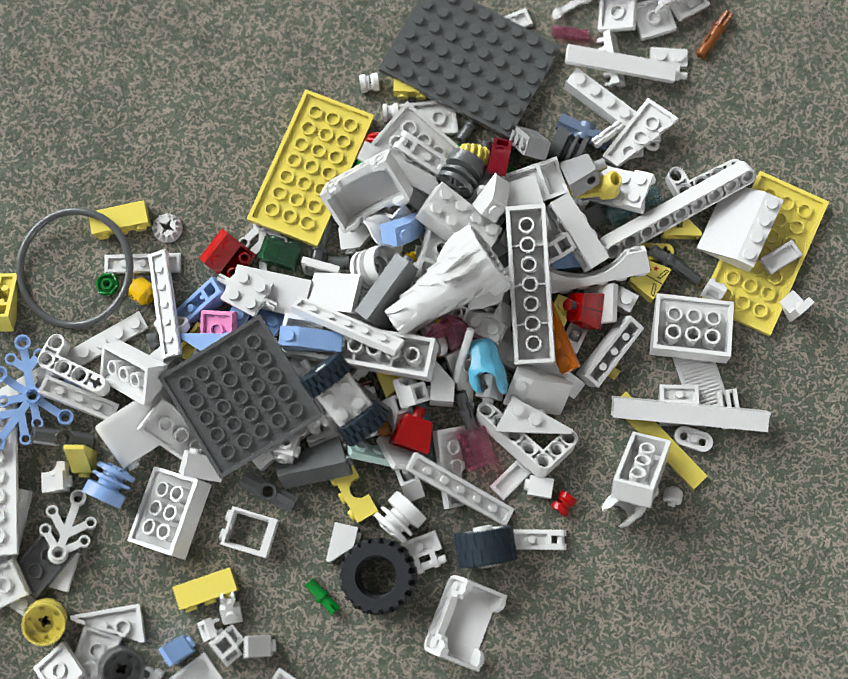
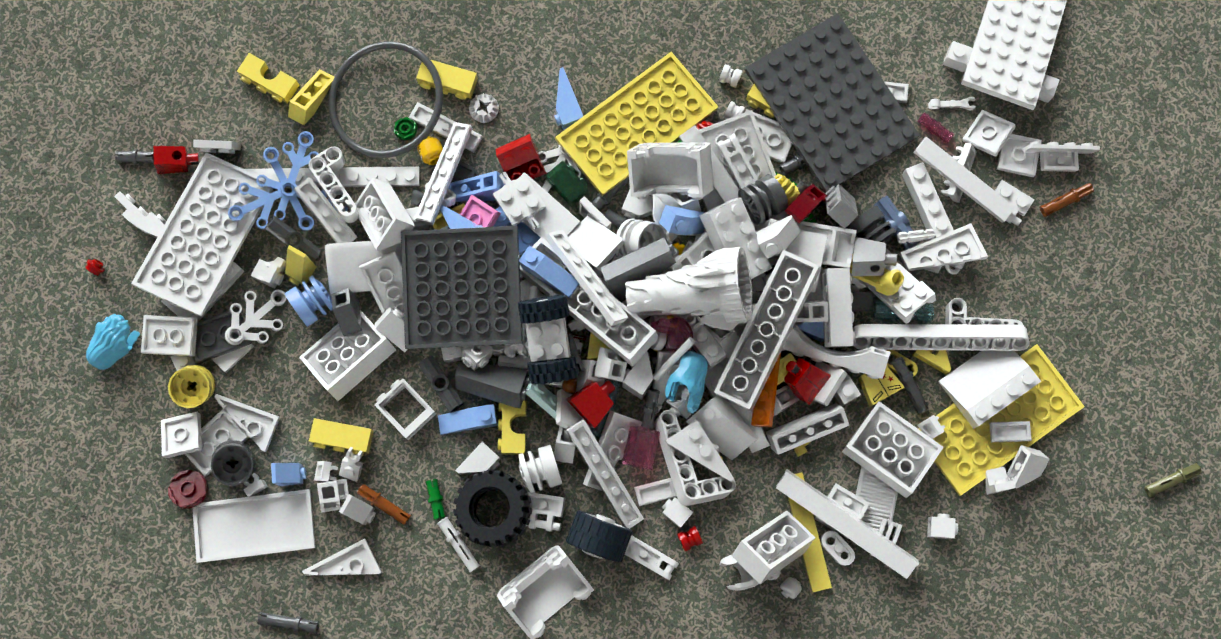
camera: 30 degrees right, 0 degrees up
(148, 475) = (347, 311): none -> dark grey slope
(182, 293) = (463, 171): none -> dark grey tile
(242, 186) = (566, 106): none -> light blue slope
(278, 627) = (383, 504): none -> dark orange axle
(310, 510) = (468, 419): none -> light blue slope
(343, 614) = (445, 524): none -> white pin
(770, 370) = (942, 527): none -> white brick
(811, 278) = (1027, 466): none -> white slope

